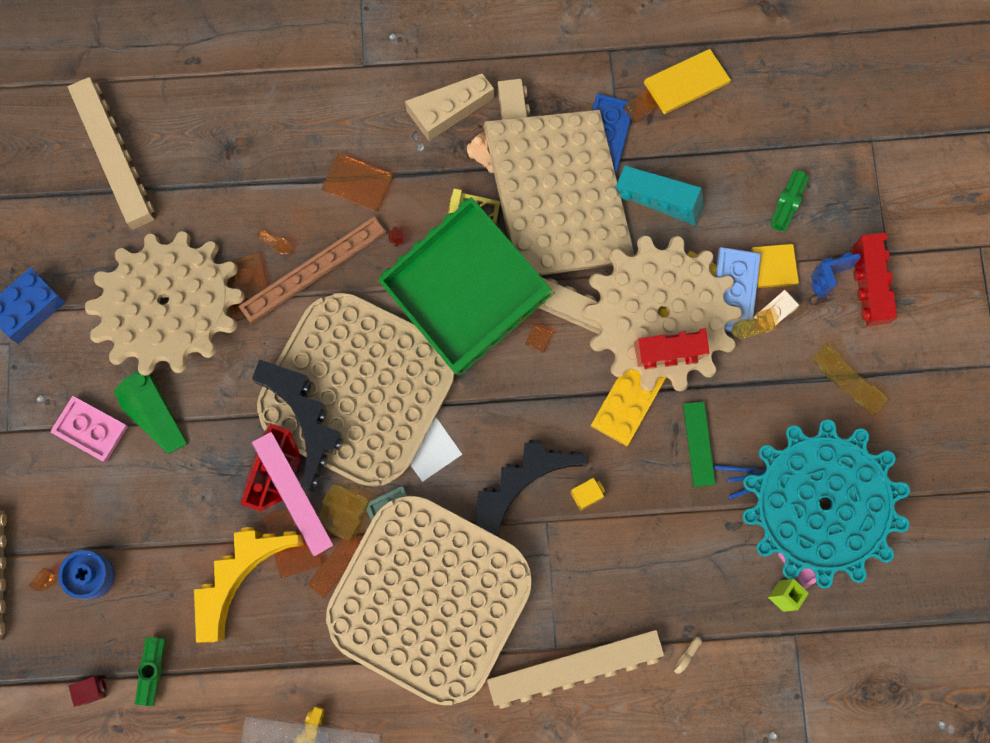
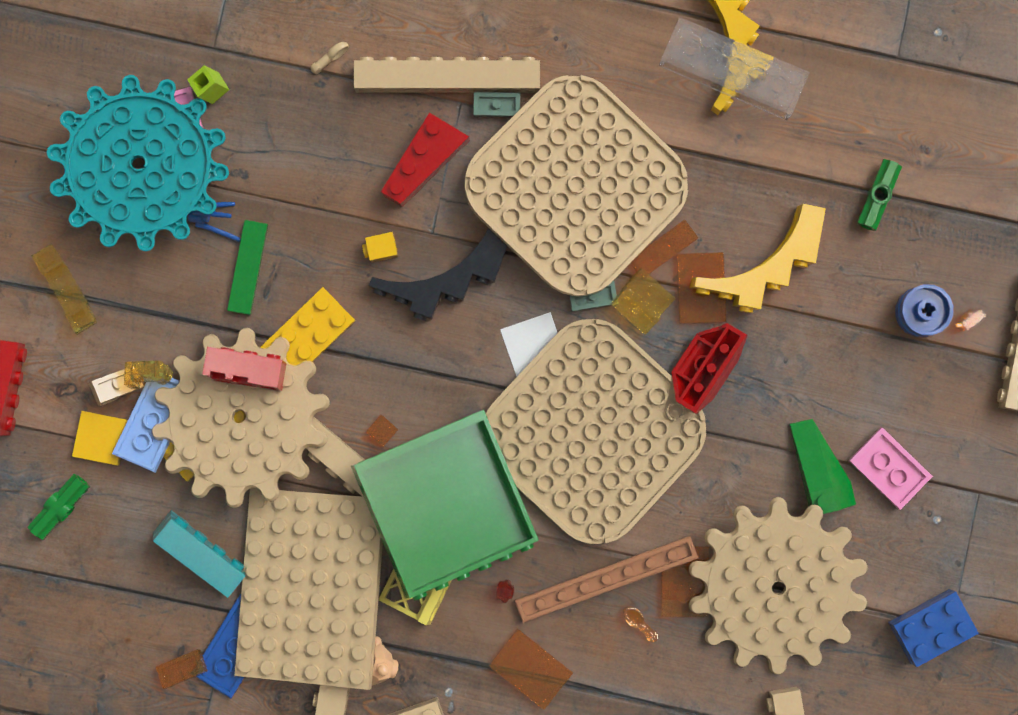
camera: 165 degrees left, 10 degrees up
(87, 691) = (946, 193): dark red brick -> none
(292, 494) = (690, 332): bright pink tile -> none
(318, 438) = (647, 383): black arch -> none
(522, 654) = (496, 104): none -> sand green plate
(571, 591) = (425, 156): none -> red wedge
(687, 81) = (124, 681): yellow tile -> none
(823, 277) = (54, 406): blue bracket -> none

